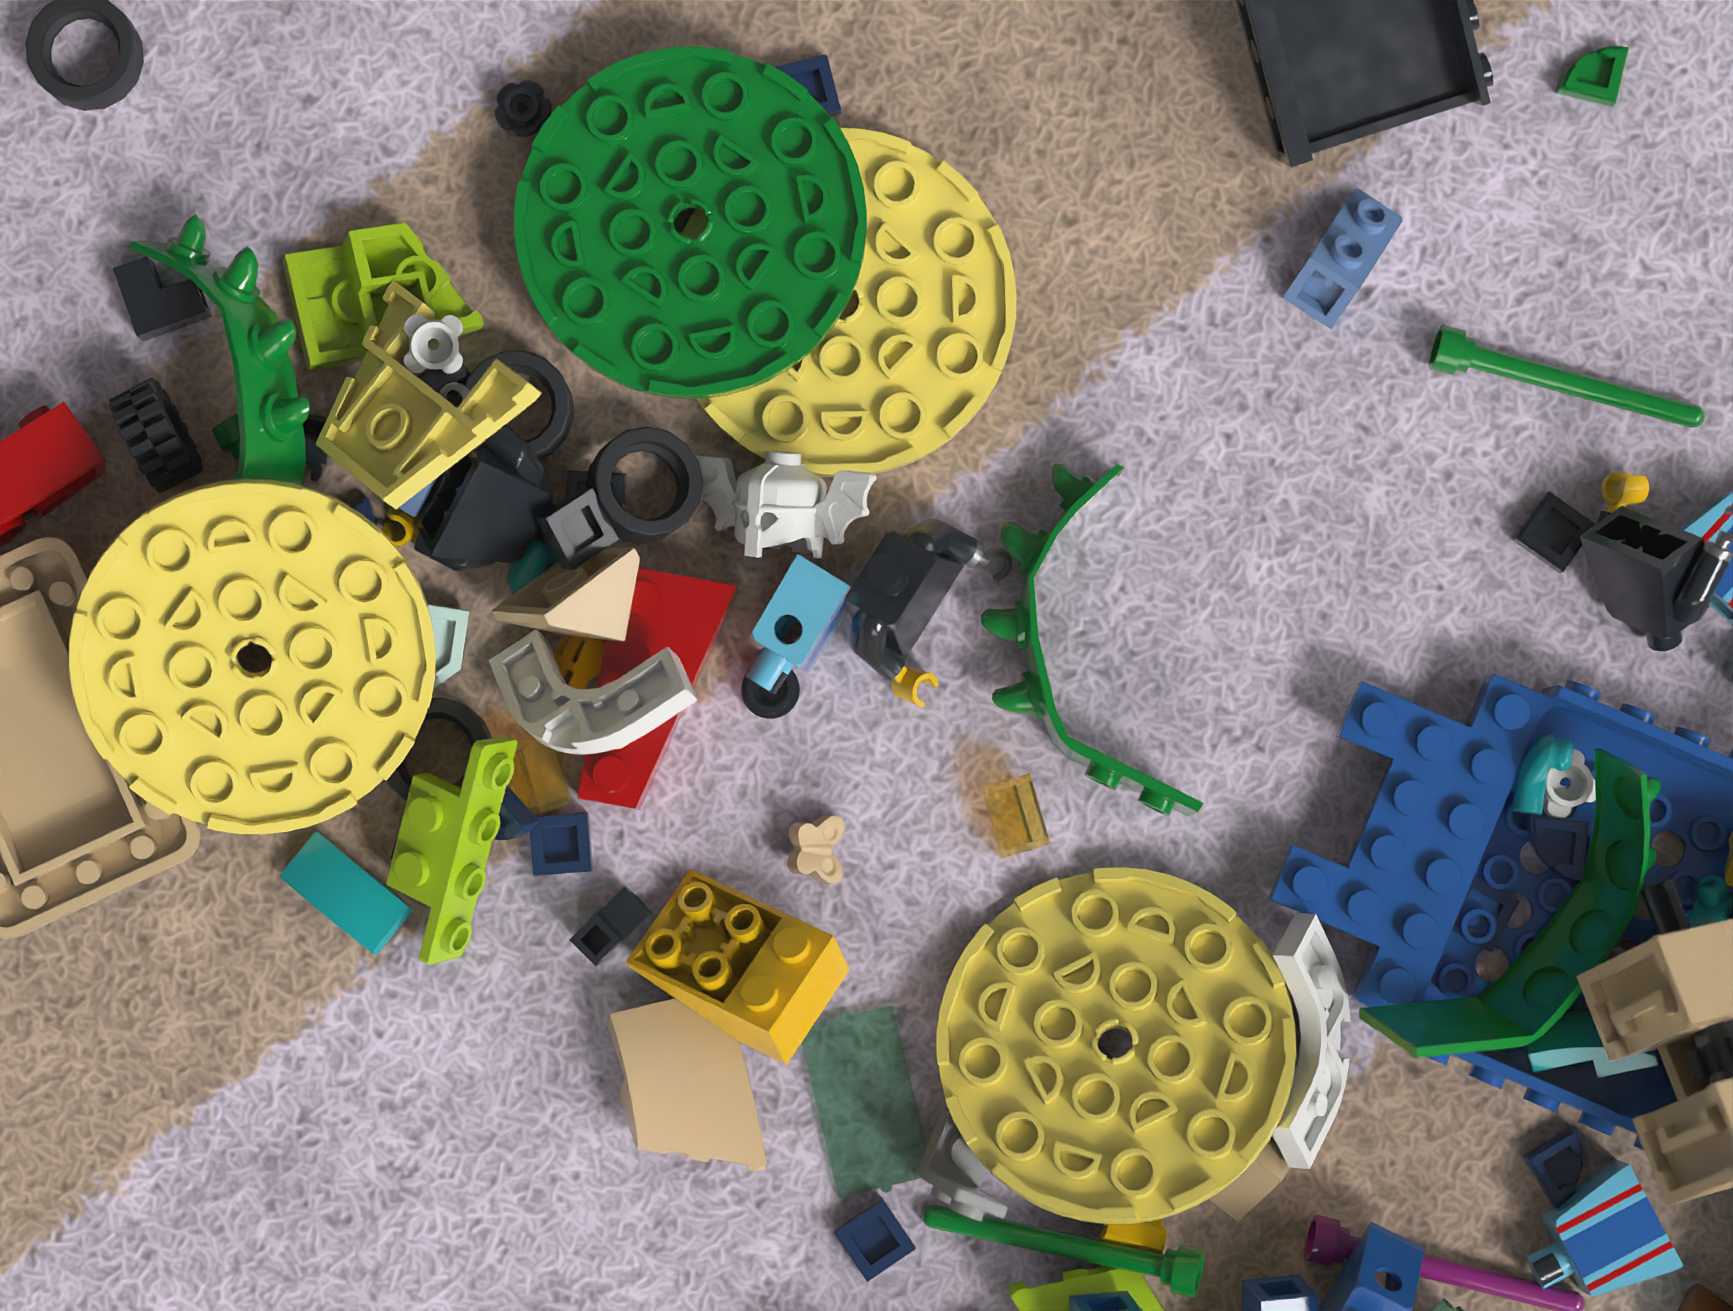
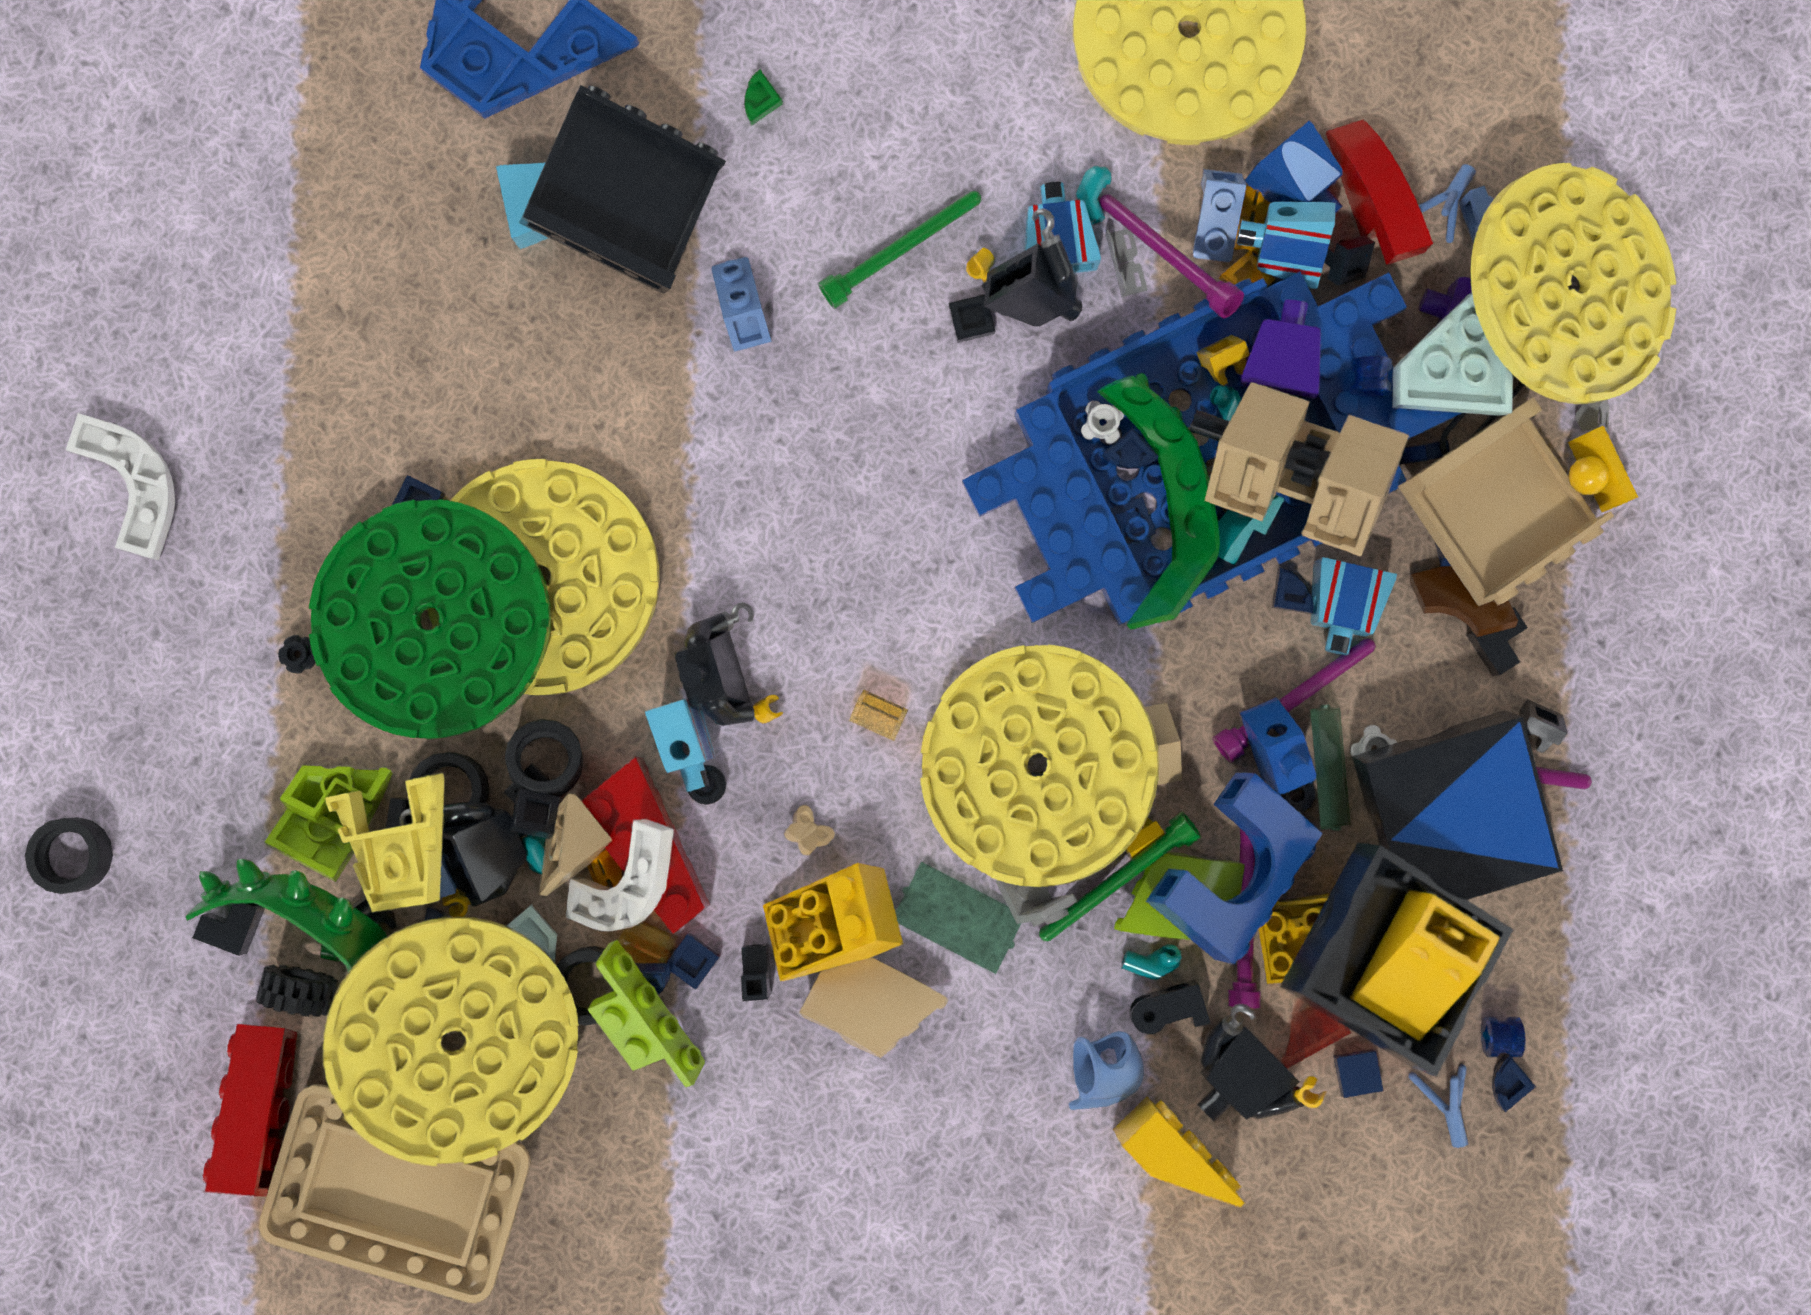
camera: 40 degrees left, 0 degrees up
(346, 893) = (620, 1094): teal slope -> none
(445, 356) = (374, 818): white plate -> none
(783, 502) = (615, 695): white helmet -> none
(875, 1239) = (1032, 974): dark blue tile -> none
(1034, 691) = (823, 651): green piece -> none
(1321, 1003) = (1107, 641): white plate -> none
(1534, 770) = (1083, 433): teal arm -> none

